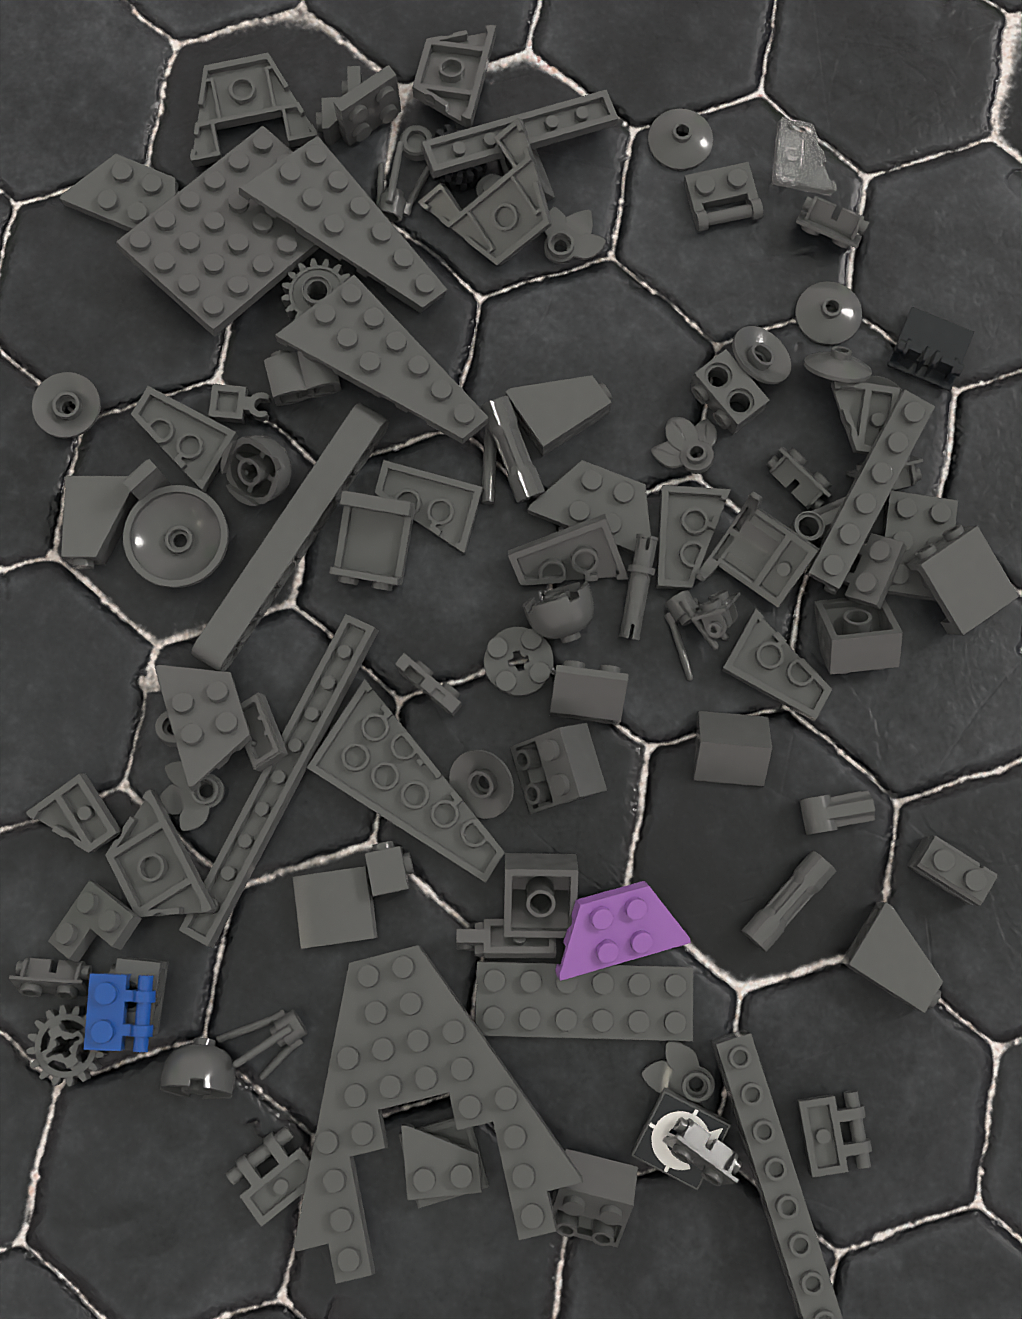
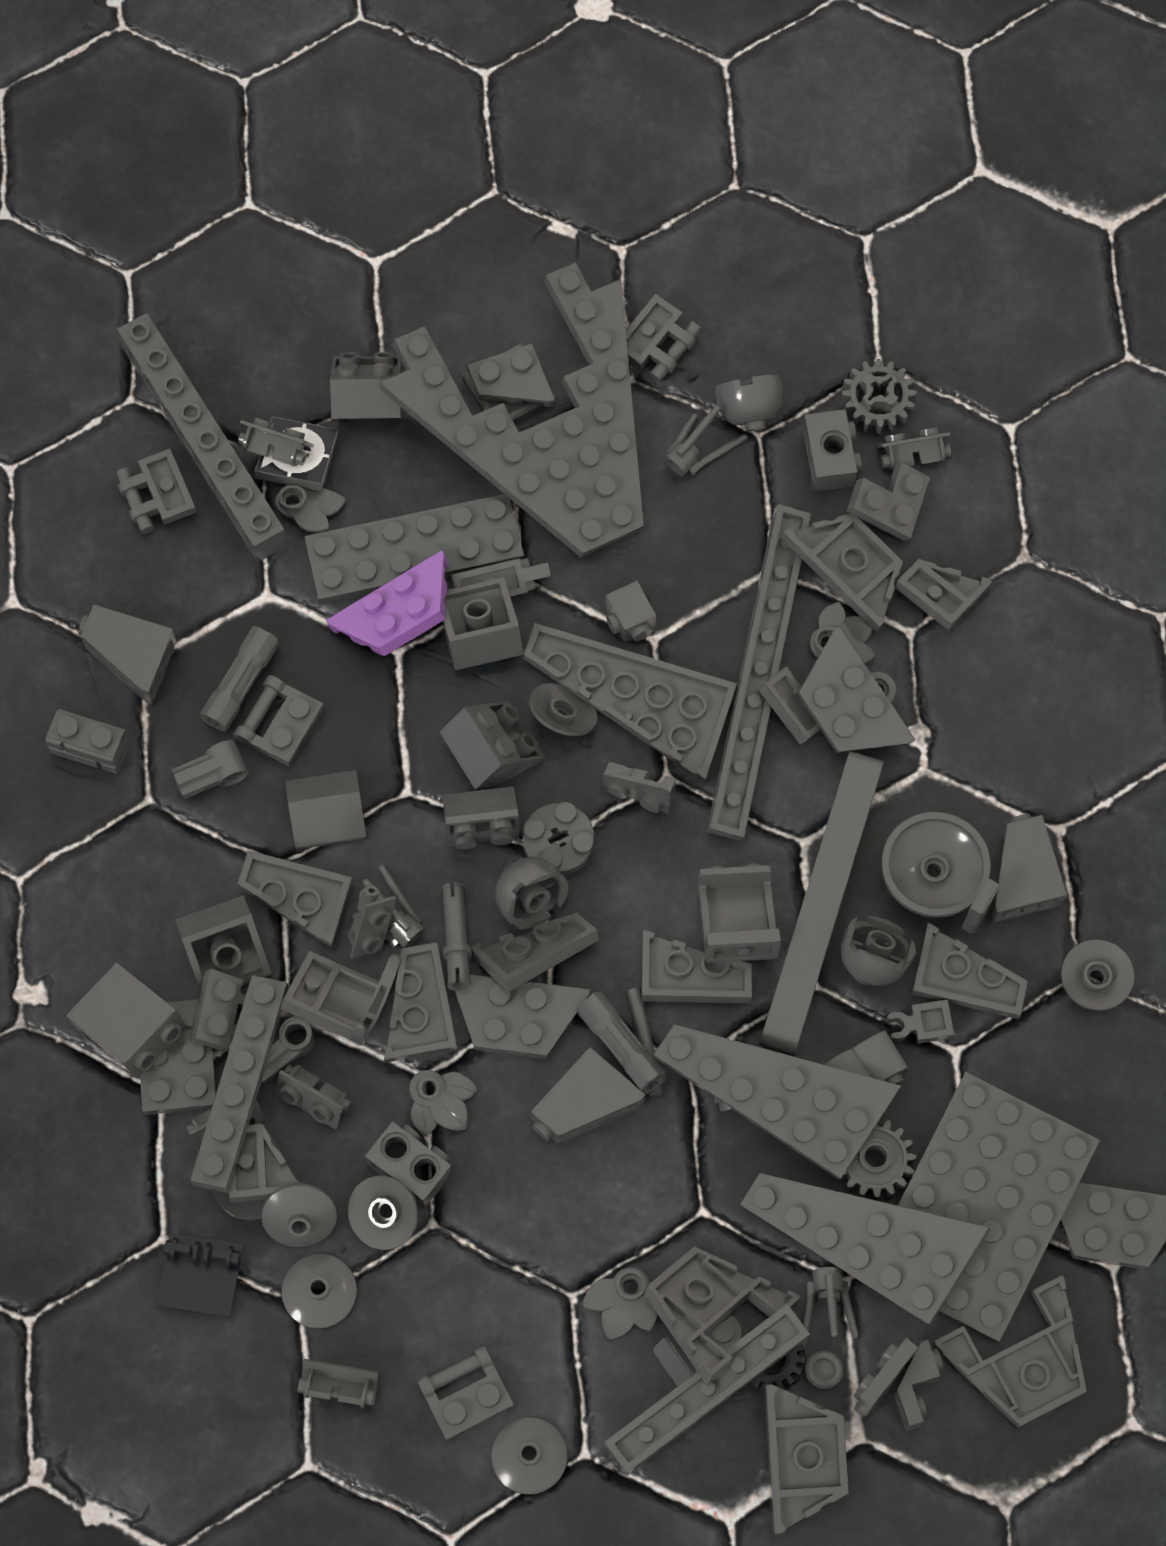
camera: 165 degrees right, 10 degrees down
(108, 1011) = (847, 422): blue plate -> none
(334, 907) = (672, 569): dark grey slope -> none
(749, 840) = (288, 727): none -> dark grey plate
(800, 159) = (389, 1458): clear wing -> none

